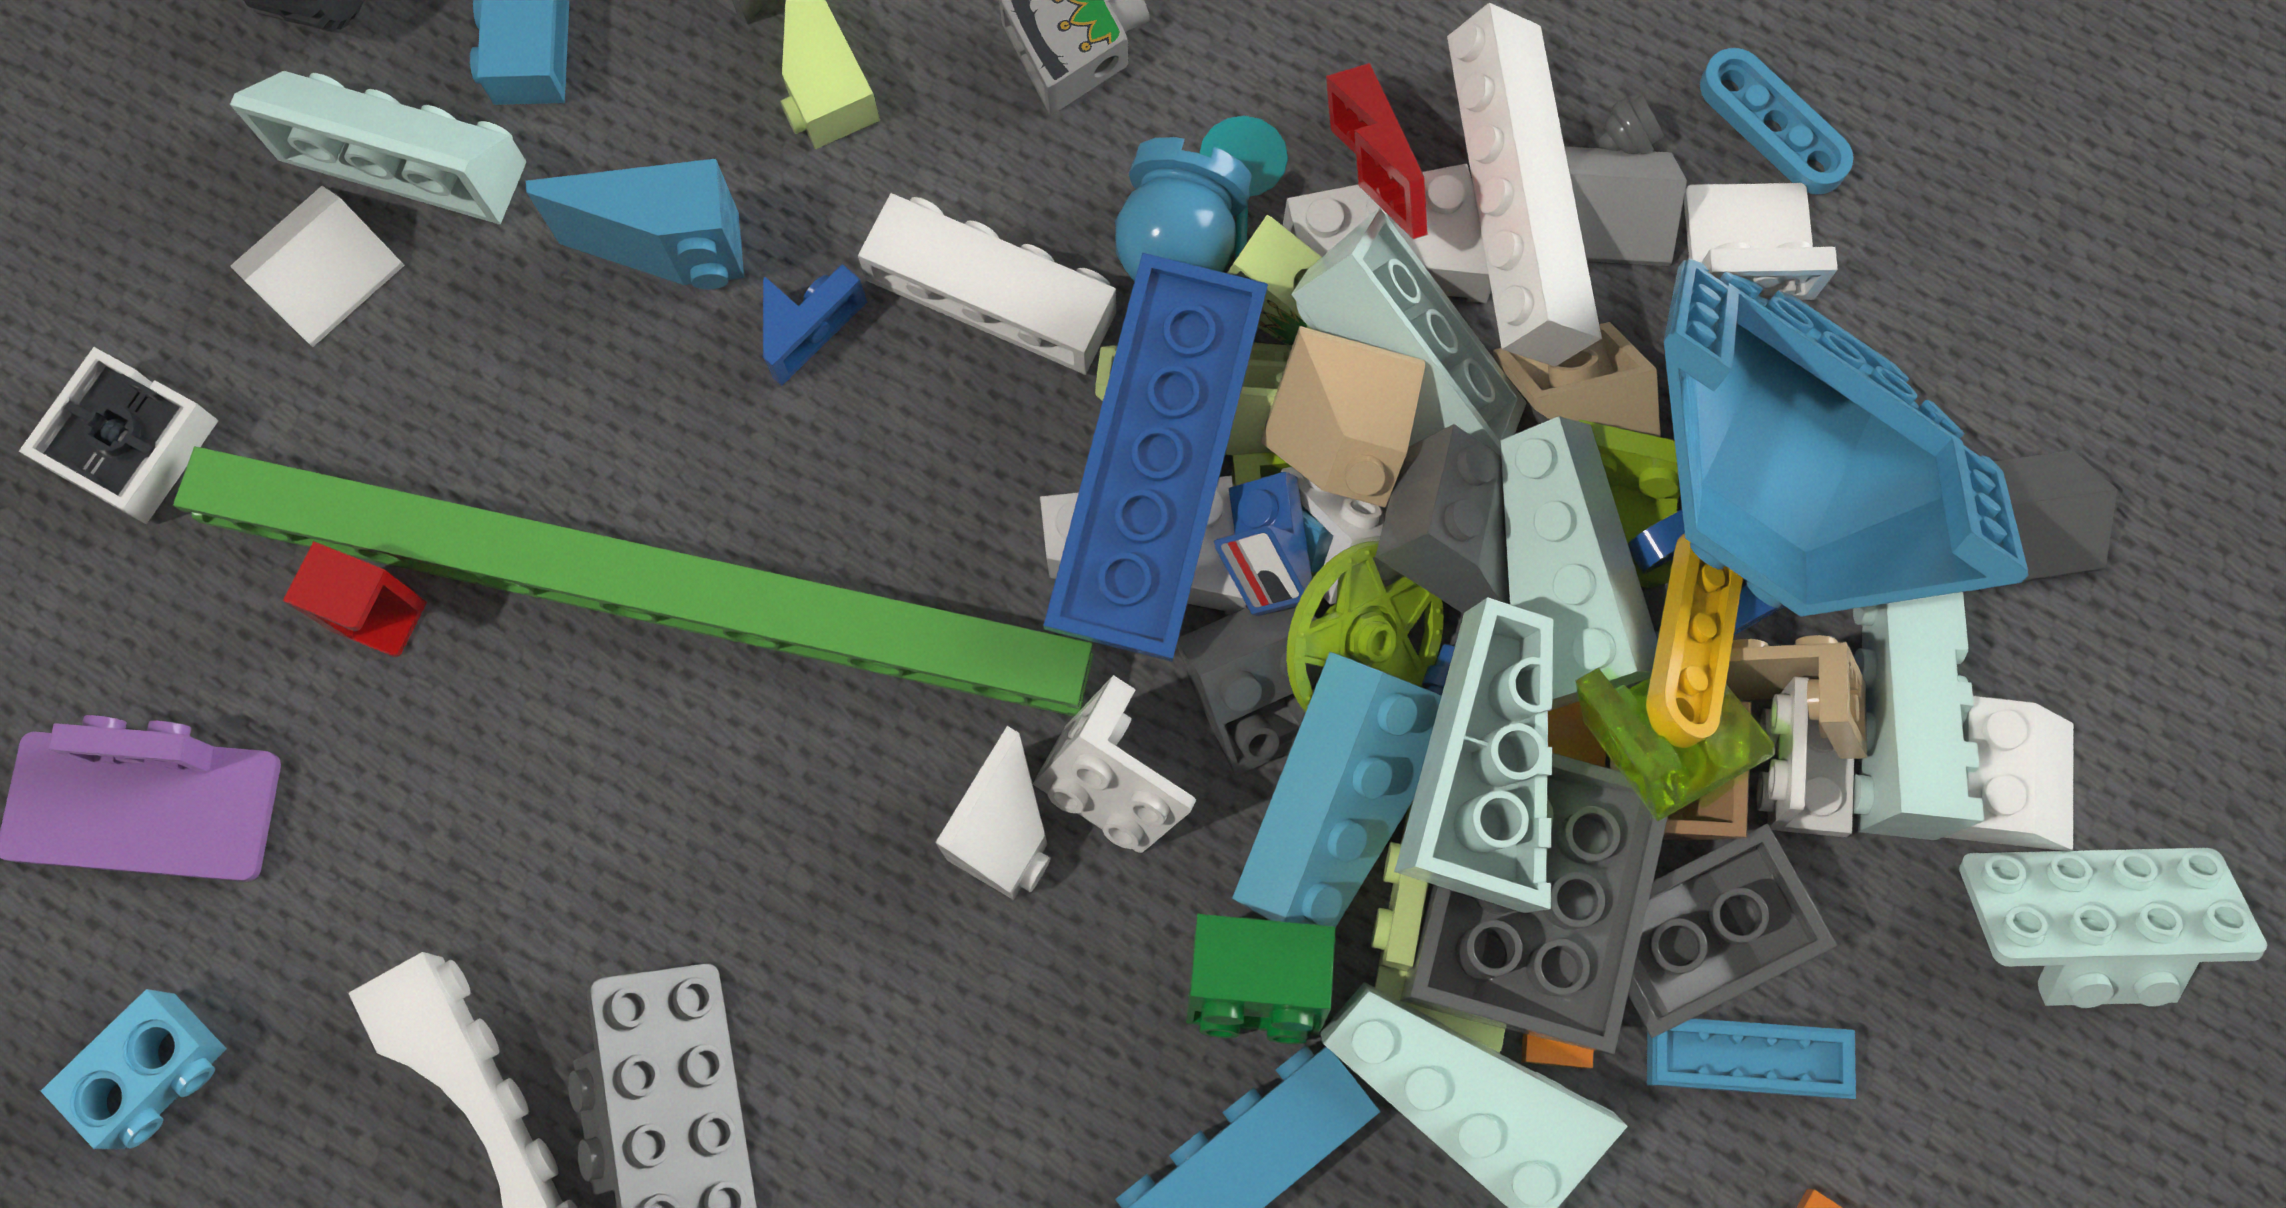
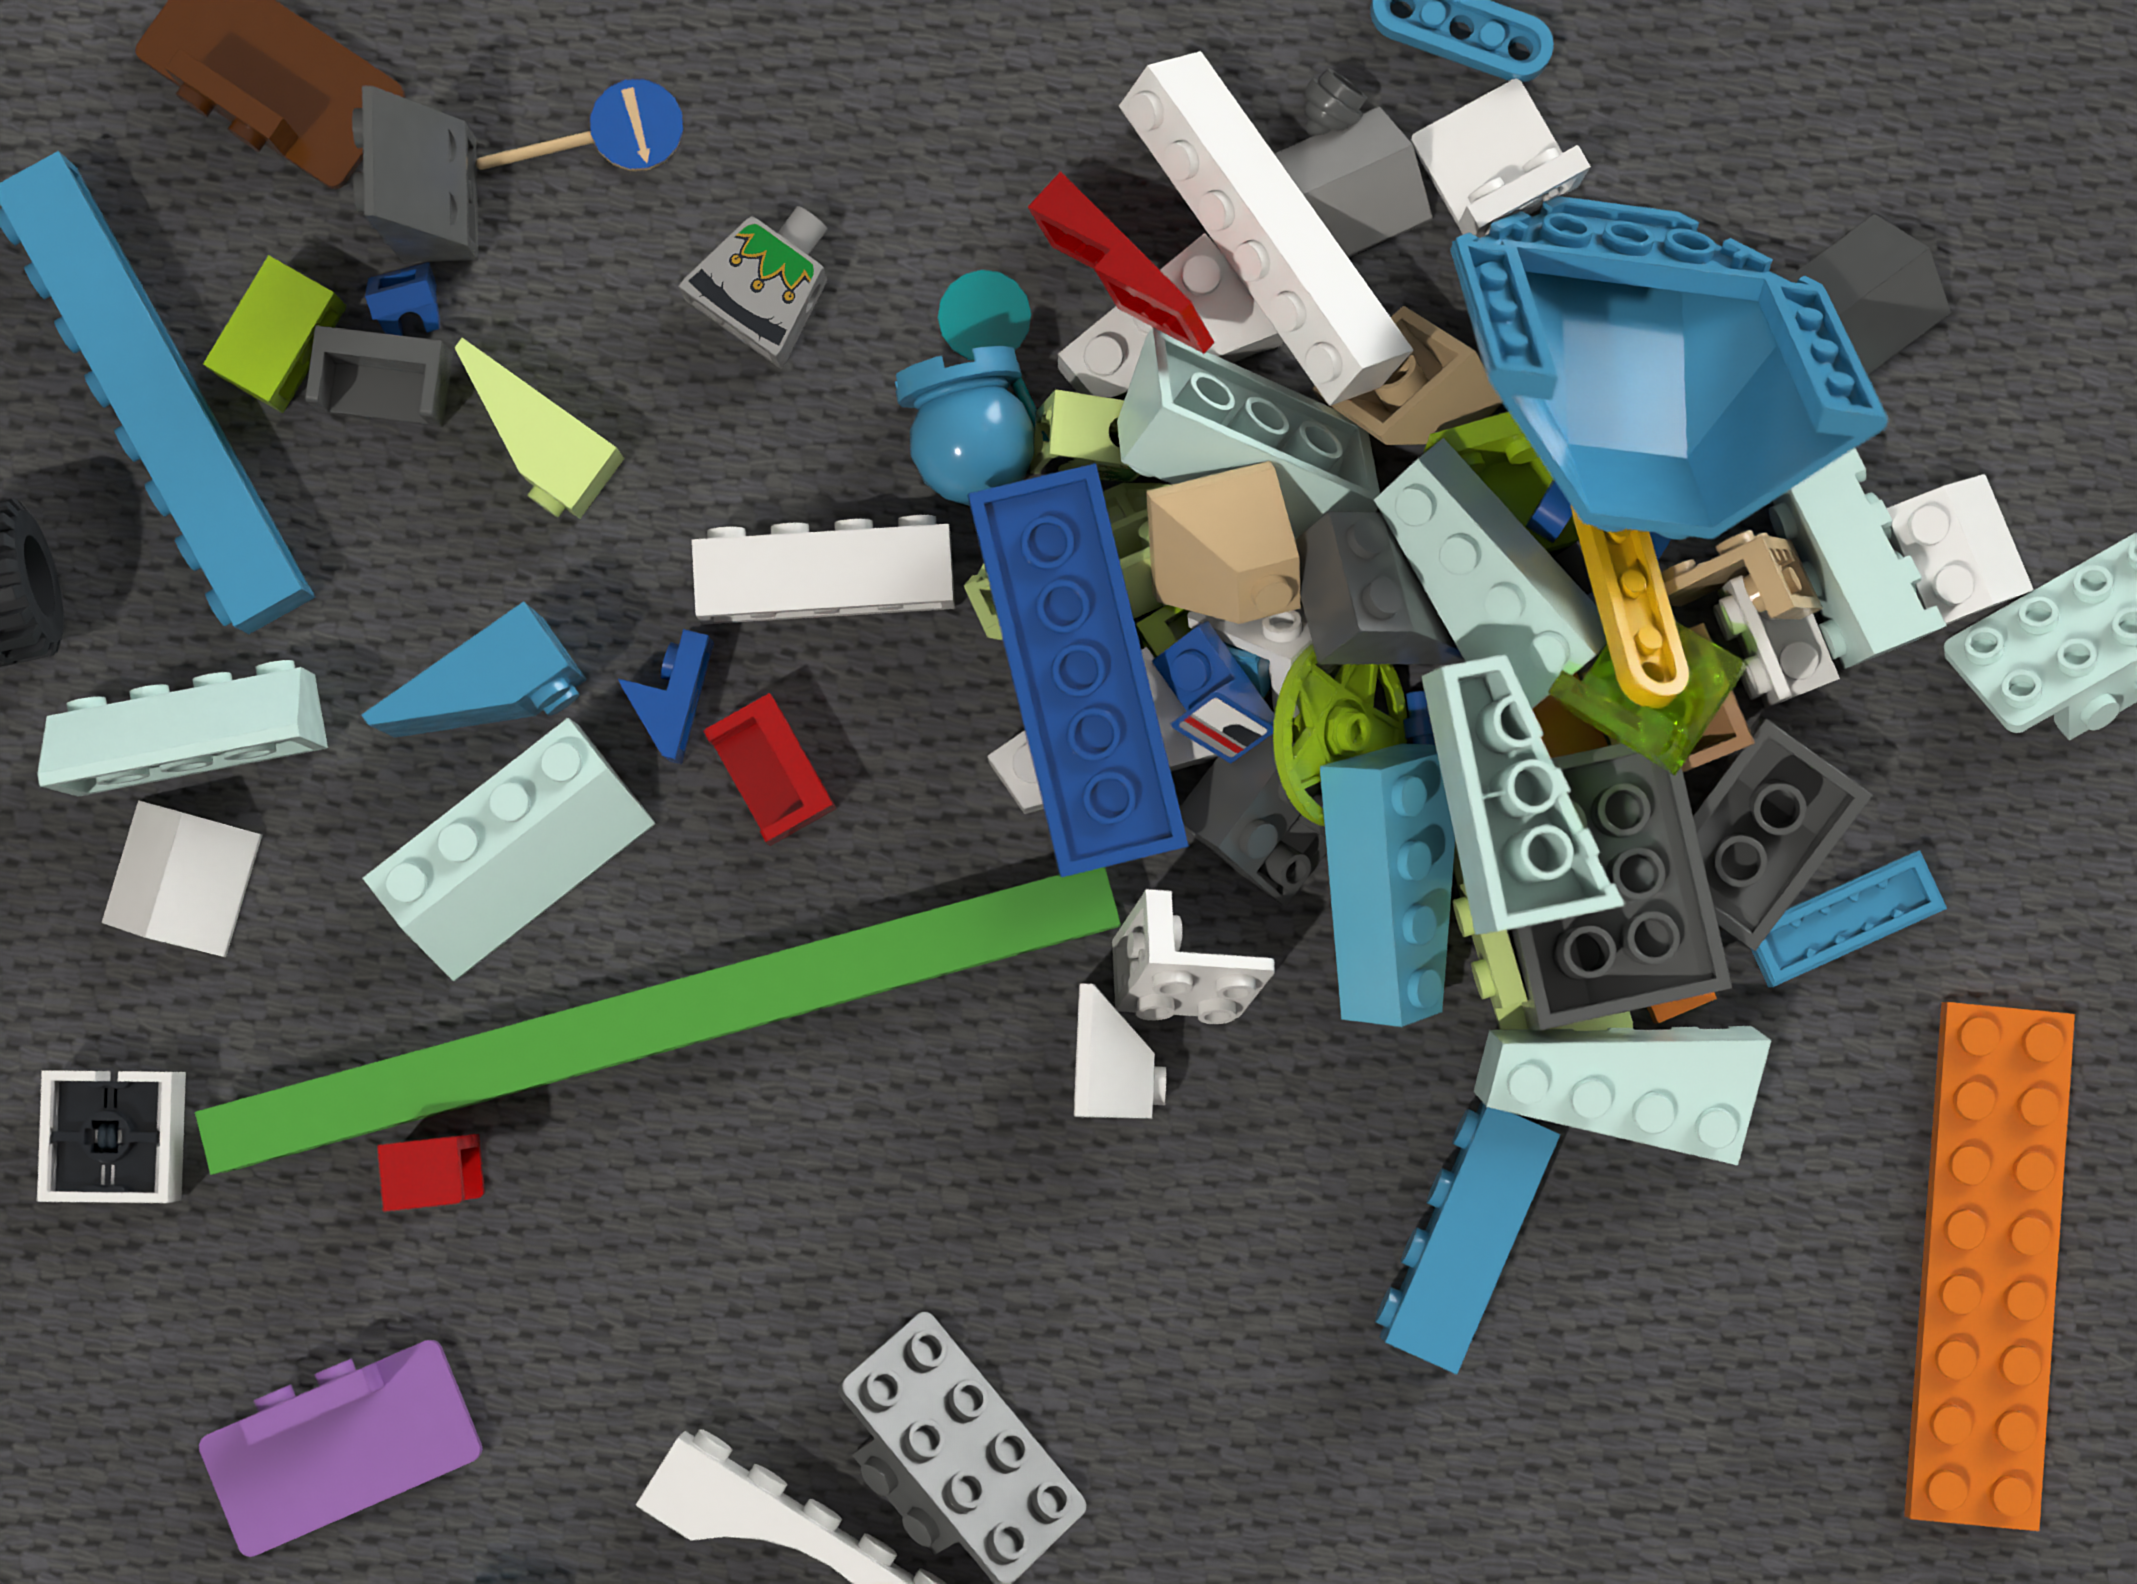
camera: 30 degrees left, 10 degrees up
(592, 373) = (509, 850): none -> light aqua slope
(852, 422) = (770, 769): none -> red panel
(1260, 978) = (1403, 1076): green slope -> none

